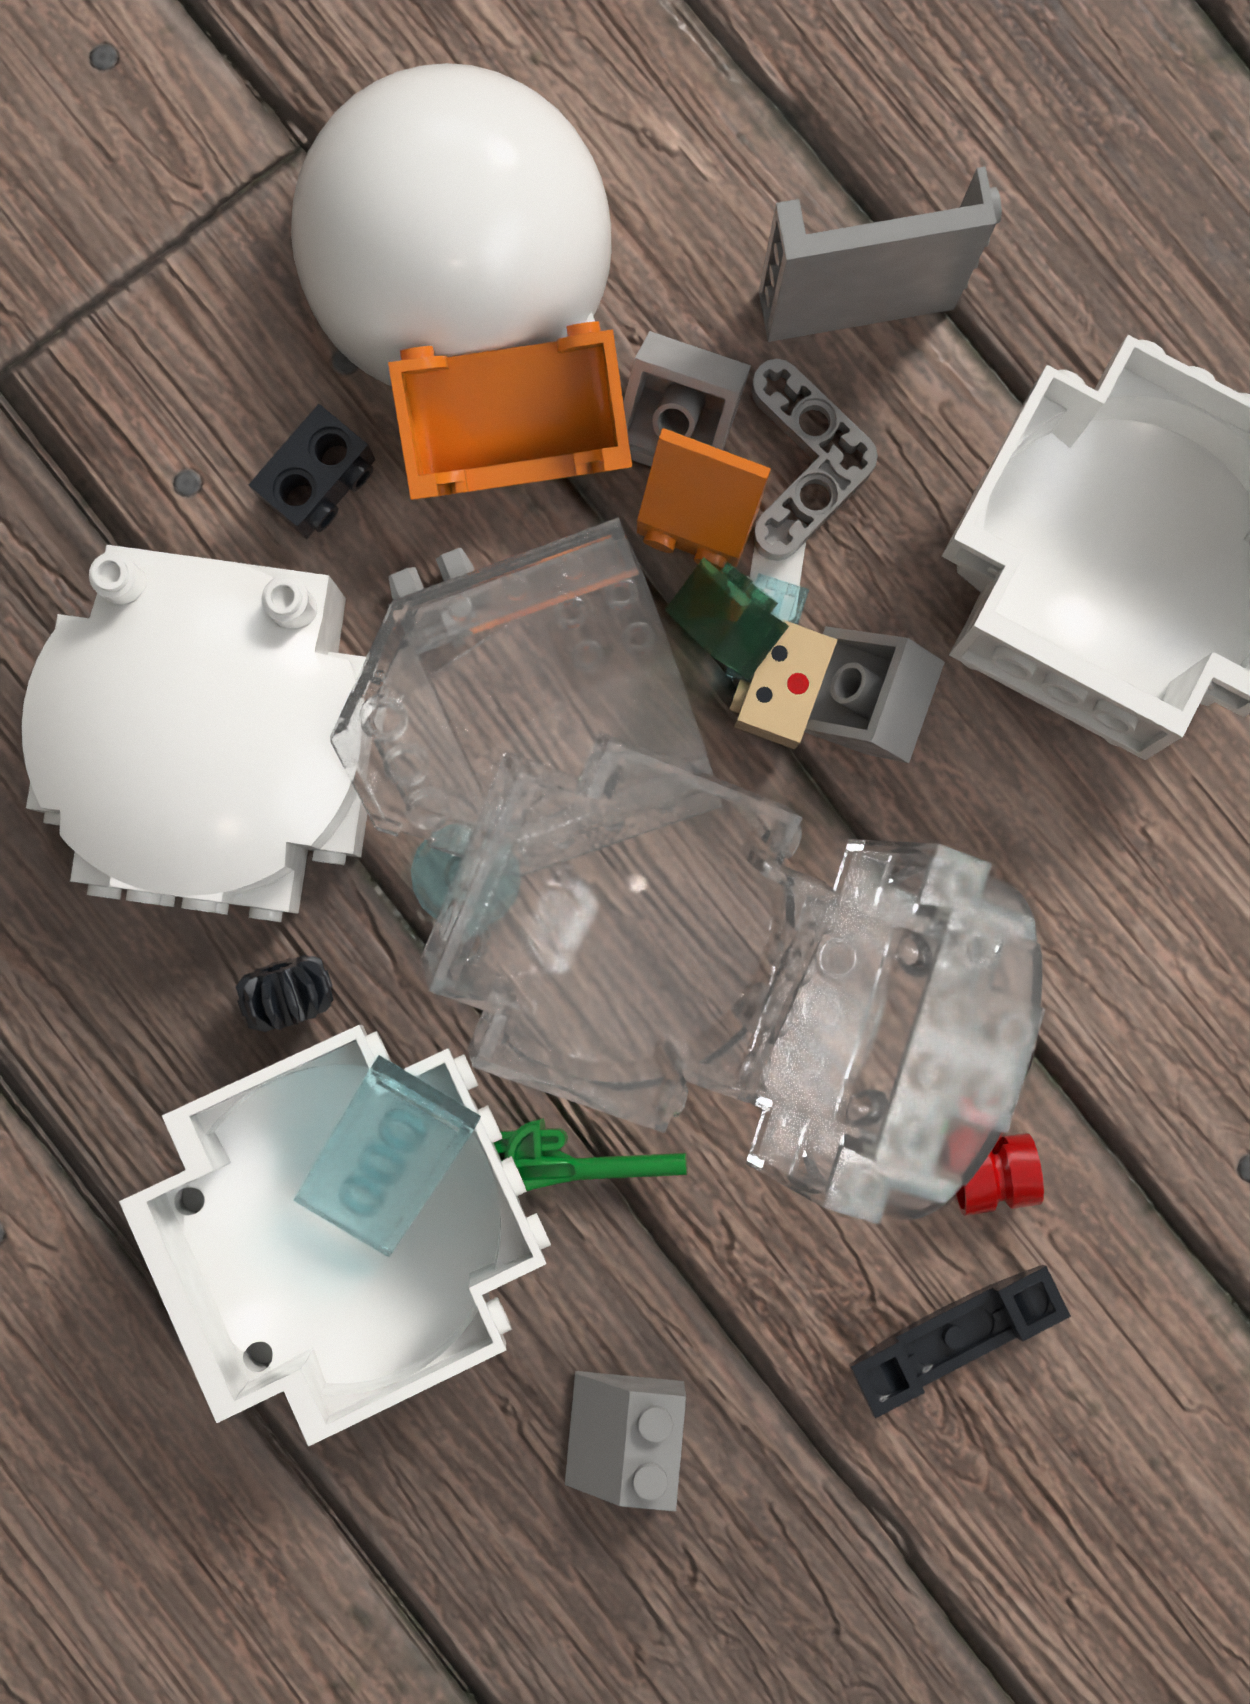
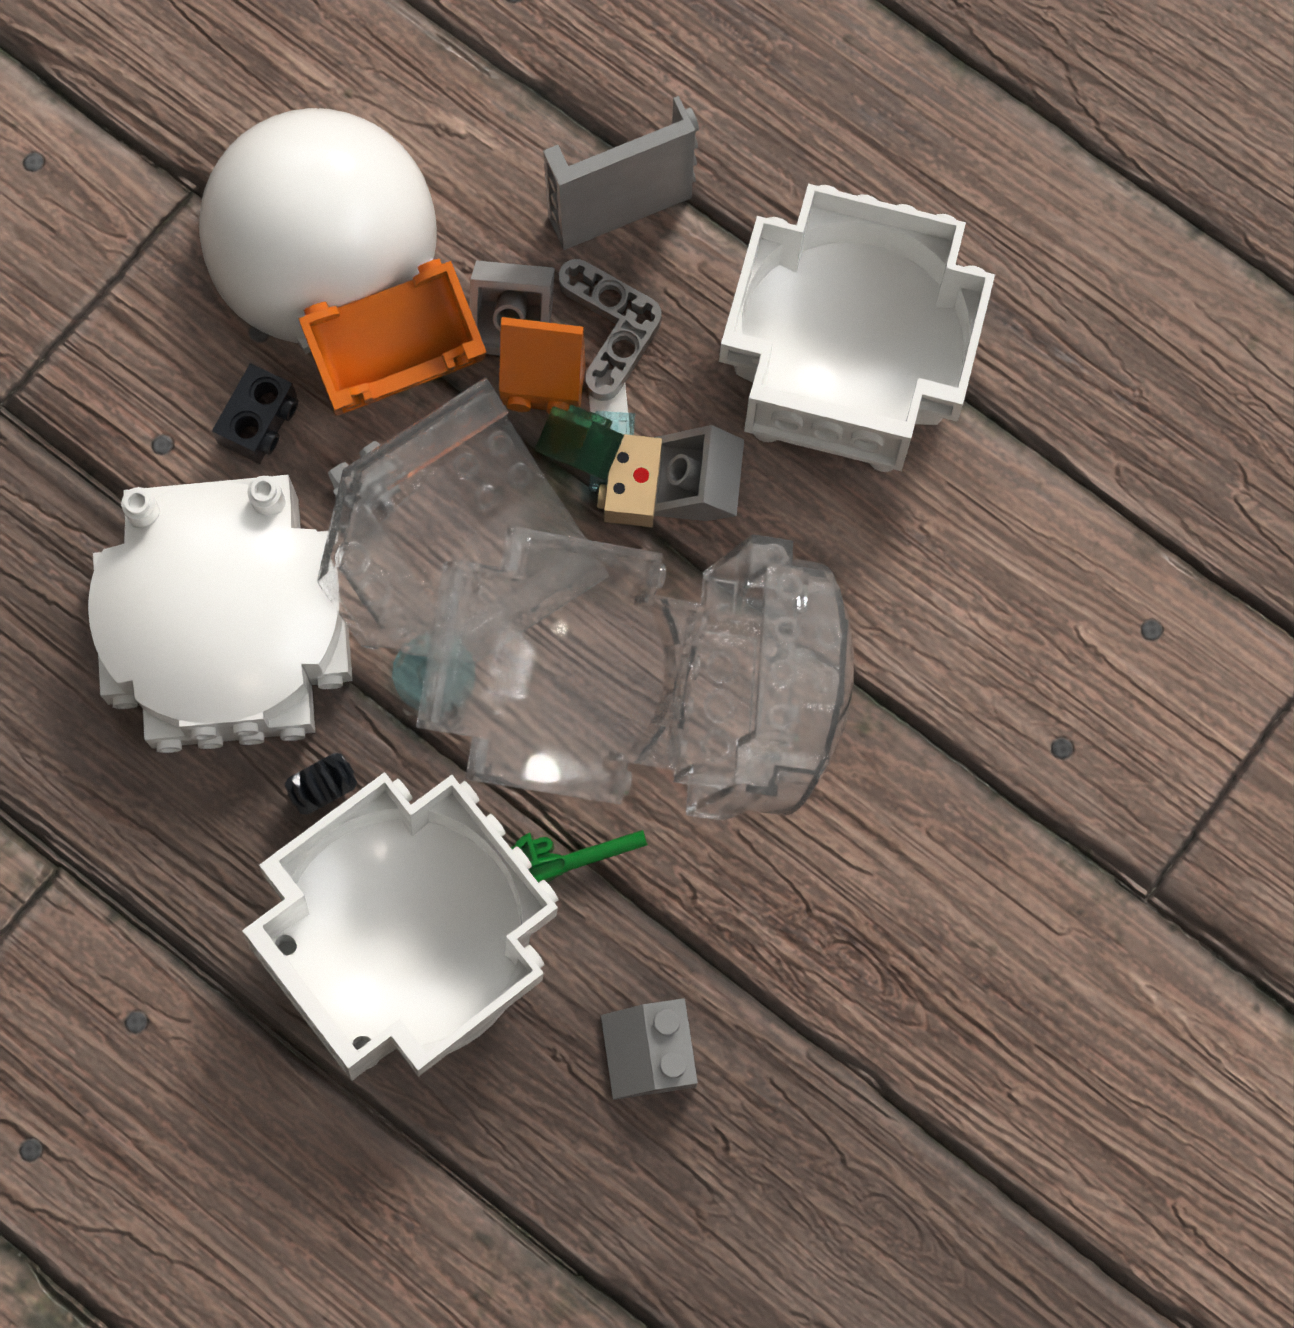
camera: 15 degrees left, 10 degrees down
(386, 1156) = (424, 868): clear light blue tile -> none
(957, 1335) = (876, 916): black slope -> none
(1008, 1175) = (878, 788): red wheel -> none

